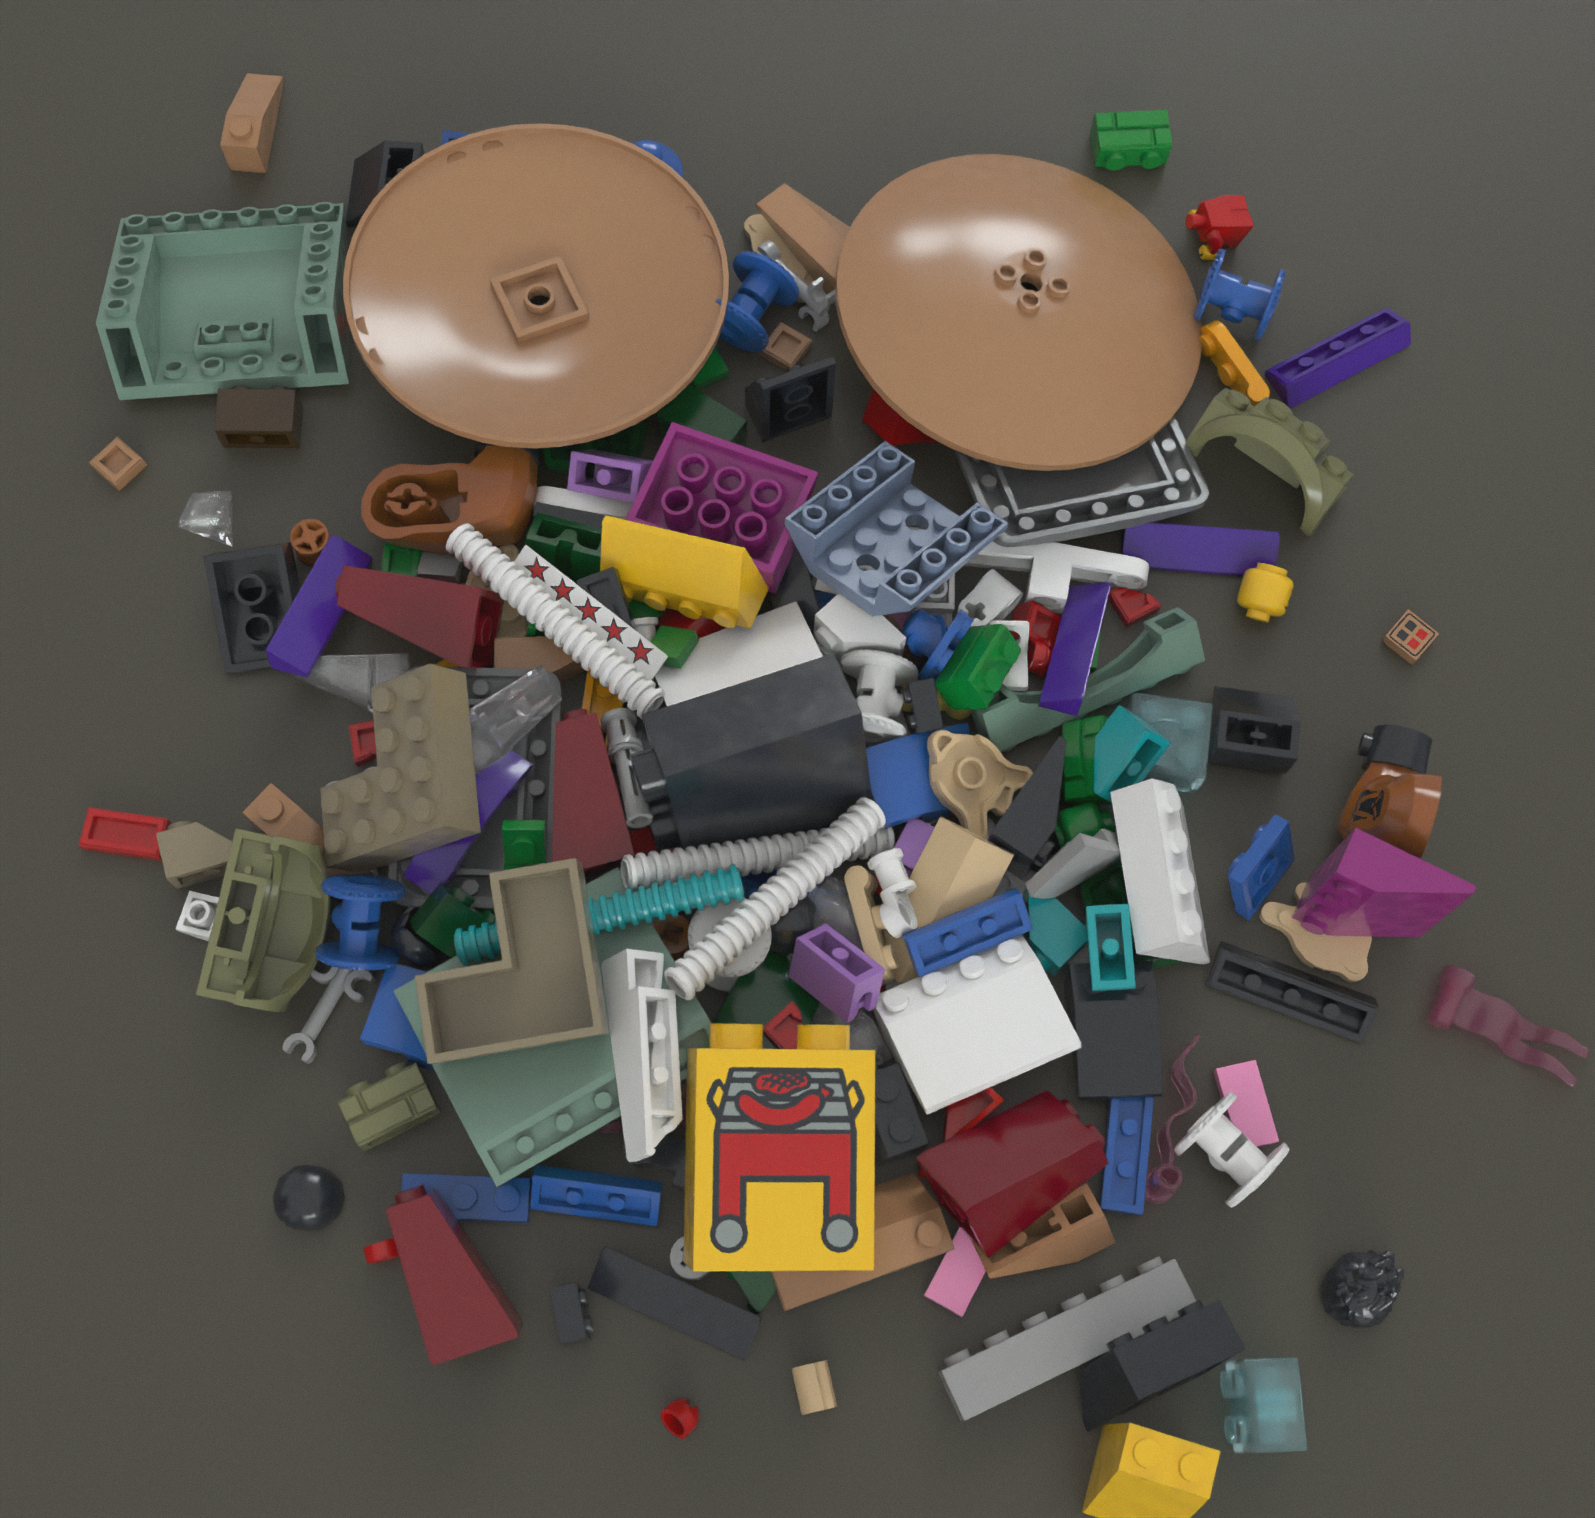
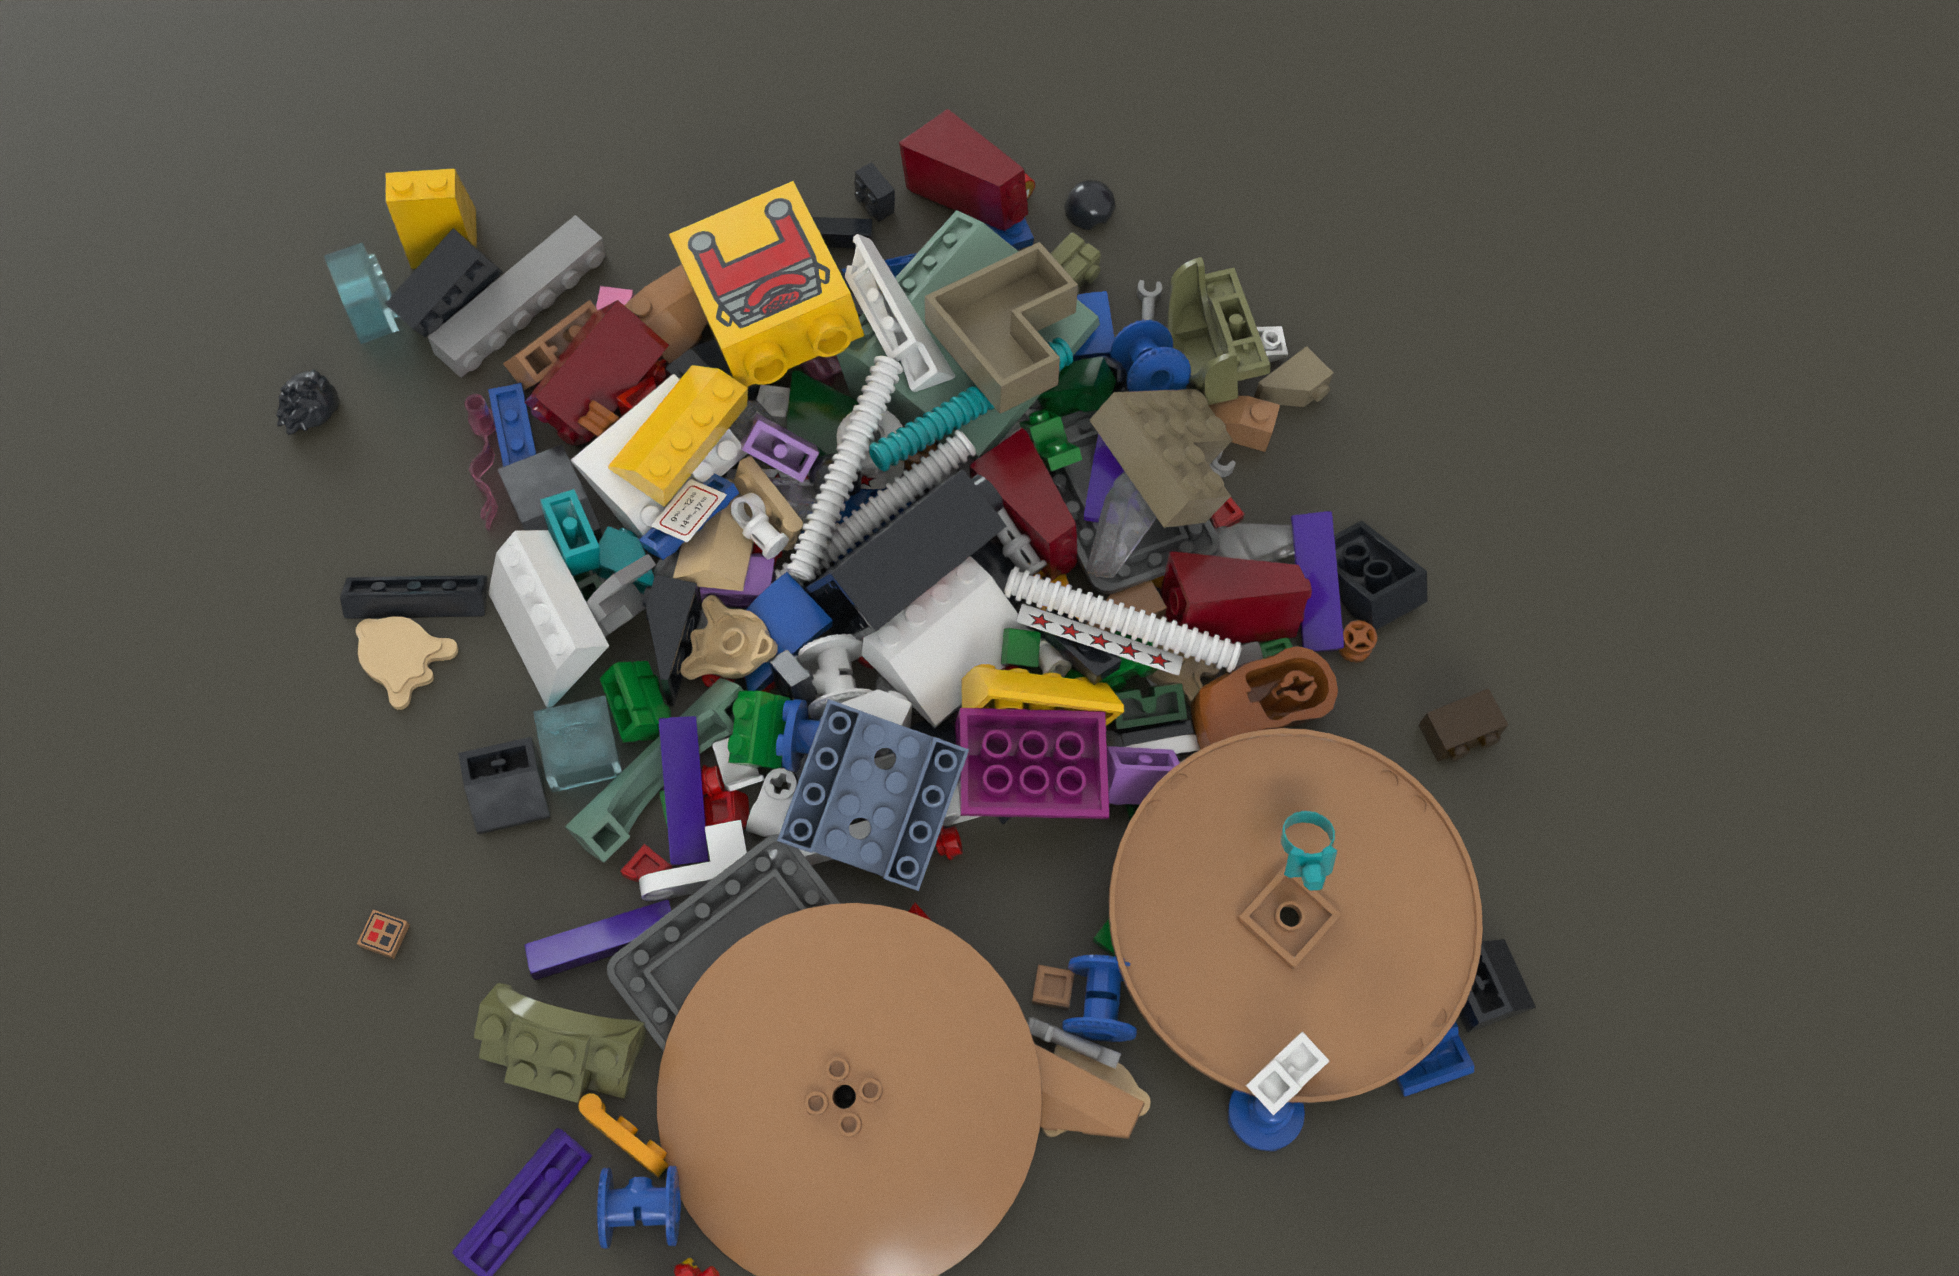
camera: 155 degrees right, 5 degrees down
(118, 463) = (1551, 649): medium nougat tile -> none
(122, 833) = (1362, 381): red tile -> none
(209, 516) = (1450, 627): clear slope -> none
(227, 301) = (1563, 820): sand green slope -> none
(252, 123) = (1650, 1008): medium nougat slope -> none
(508, 282) = (1310, 867): none -> teal piece
(629, 155) = (1287, 1073): none -> white slope
(680, 1417) = (774, 165): red hinge -> none
(702, 414) = (1083, 868): dark green brick -> none
(783, 1027) = (801, 403): red tile -> none
(792, 399) = (1026, 917): black slope -> none
(814, 1387) = (687, 208): tan piece -> none
(948, 1020) = (680, 432): none -> yellow slope
(968, 928) = (688, 510): none -> white sticker
(1031, 1092) = (597, 419): none -> dark orange wheel
(1081, 819) = (626, 644): green head -> none
(1125, 752) = (607, 693): teal slope -> none
(1231, 1150) = (413, 439): white hose -> none
(1251, 1108) = (430, 497): bright pink tile -> none
(1261, 867) = (466, 668): blue hinge -> none
(1265, 592) = (528, 915): yellow head -> none
(1377, 892) = (360, 638): magenta slope -> none
(1394, 793) = (369, 741): dark orange piece -> none
(1497, 1021) = (238, 625): clear pink flag -> none

